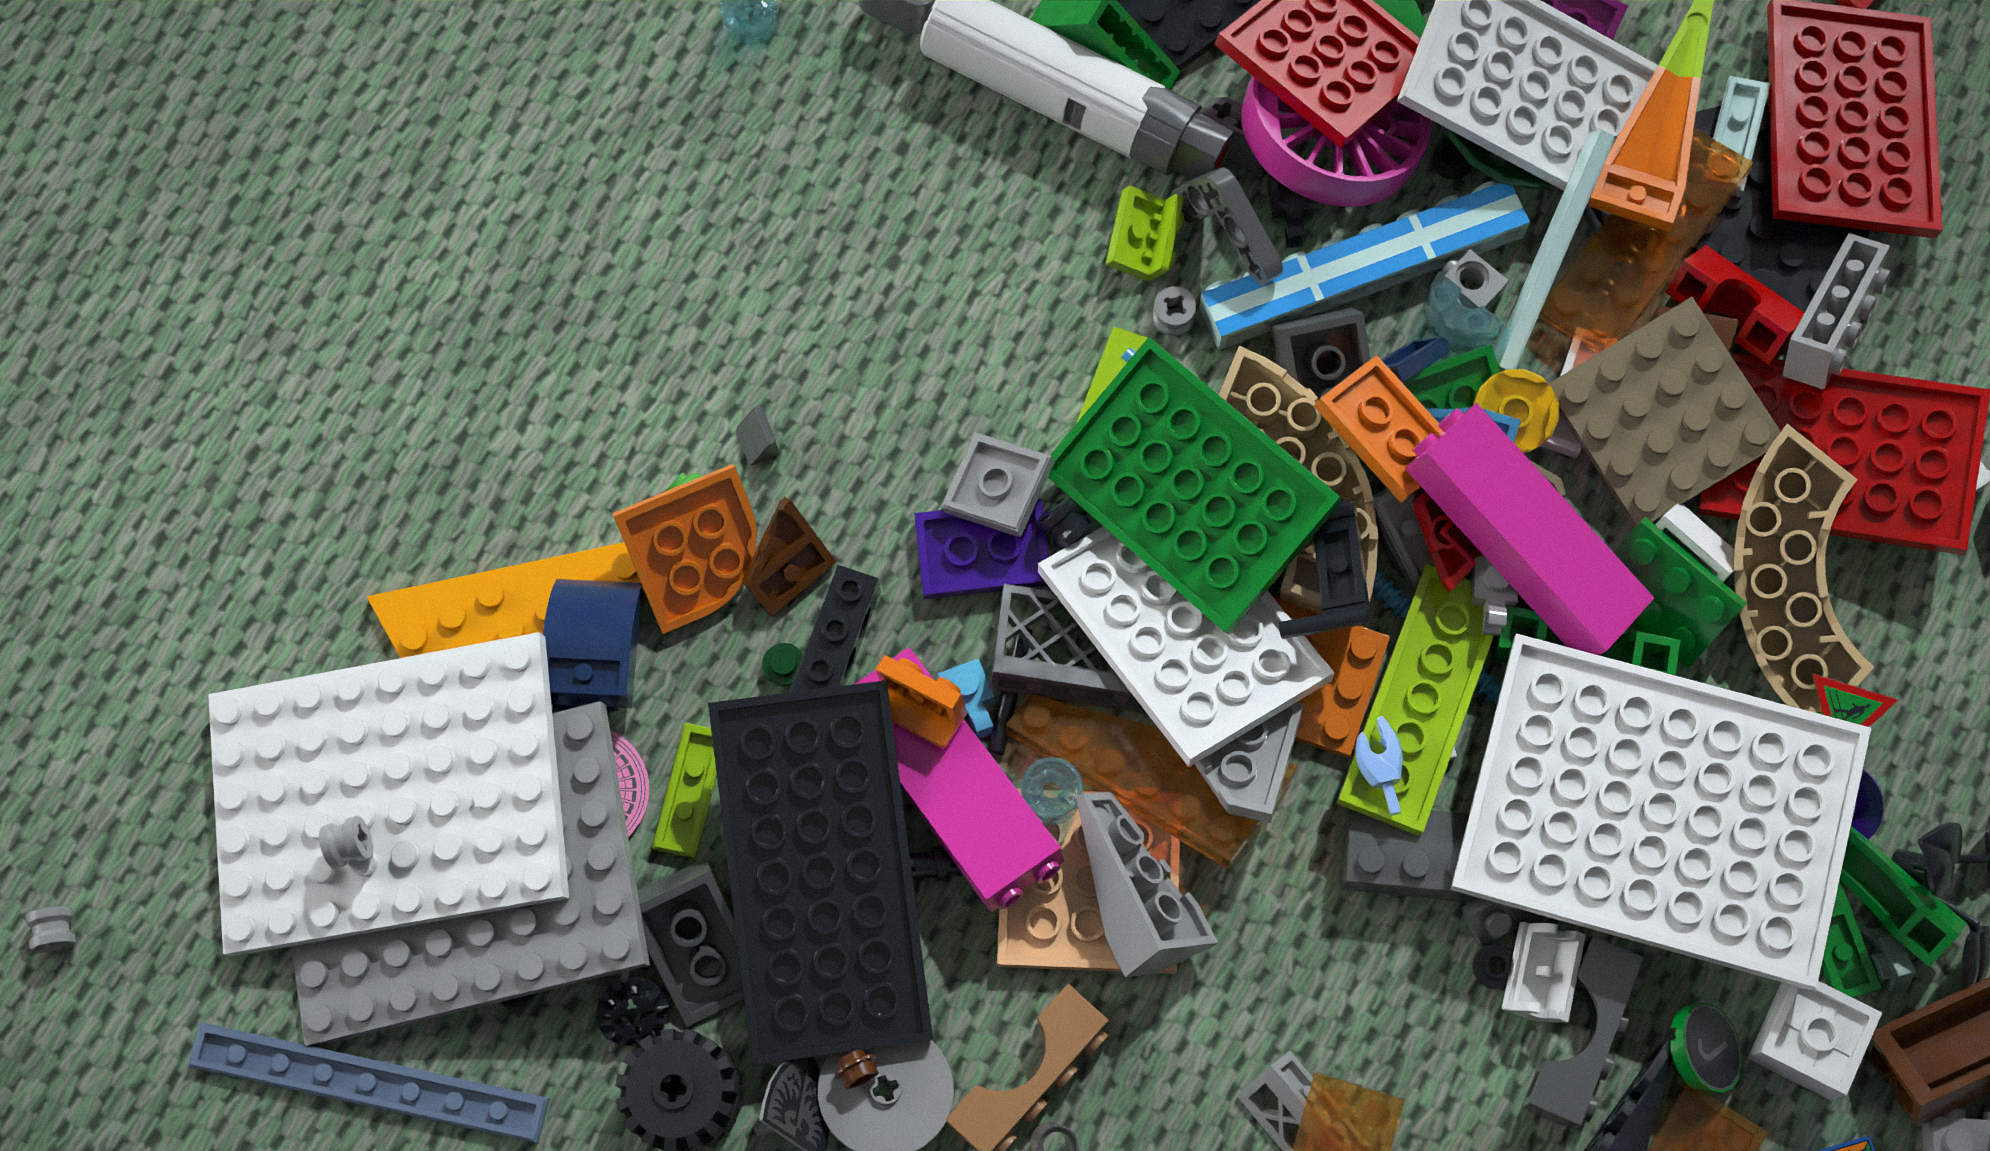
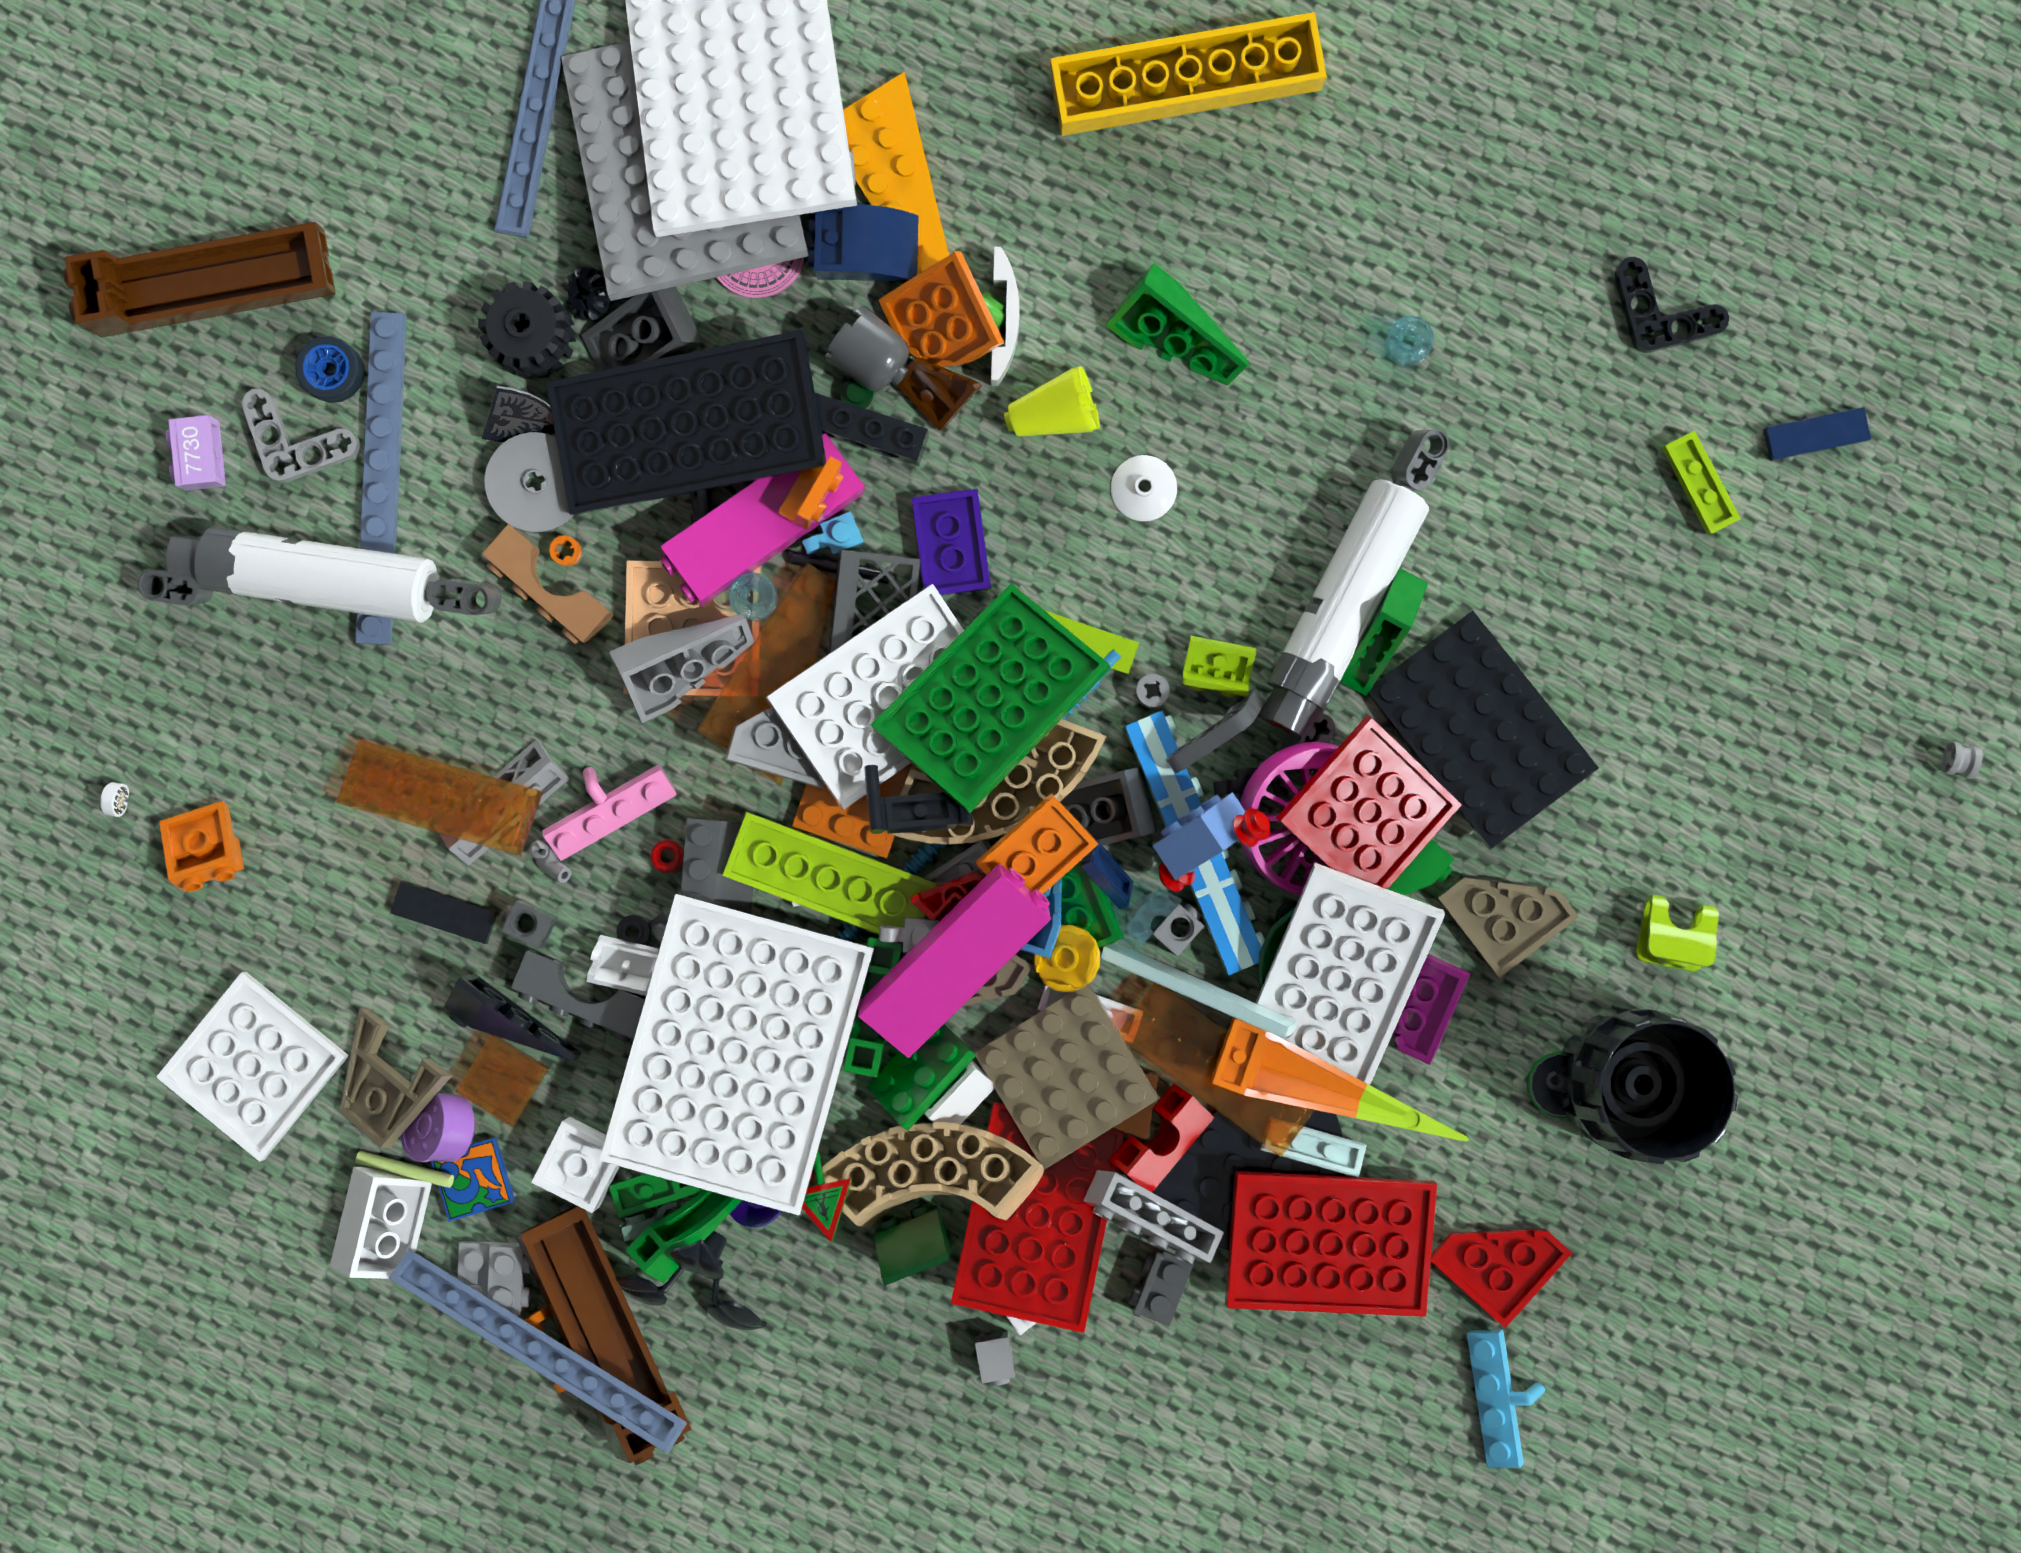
camera: 90 degrees right, 15 degrees up
(345, 842) = (693, 68): light grey wheel -> none
(402, 253) = (1188, 74): none -> yellow brick
(639, 475) = (1005, 278): none -> white slope
(687, 794) = (747, 324): lime tile -> none
(706, 284) = (1170, 320): none -> green wedge
(732, 638) = (869, 352): none -> dark grey cylinder
(757, 437) = (1040, 365): dark grey slope -> none
(814, 413) = (1055, 407): none -> neon yellow cone
(856, 1069) = (545, 458): reddish brown plate -> none
(917, 338) = (1139, 504): none -> white dish
(967, 1055) = (562, 540): none -> orange bush
(997, 484) = (997, 551): light grey plate -> none
(1063, 522) = (968, 603): black wheel -> none
(1334, 996) = (608, 810): none -> bright pink plate
(1367, 223) = (1204, 835): none -> medium blue brick
(1385, 768) = (768, 847): light blue hand -> none
(1397, 907) = (656, 856): none -> red plate
(1406, 1078) = (549, 861): none -> light grey arm
(1506, 1095) = (543, 923): none -> dark grey brick
(1706, 1048) = (570, 1084): tile -> none
(1894, 599) = (911, 1243): none -> dark green slope
(1918, 317) = (1160, 1287): none -> dark grey bracket

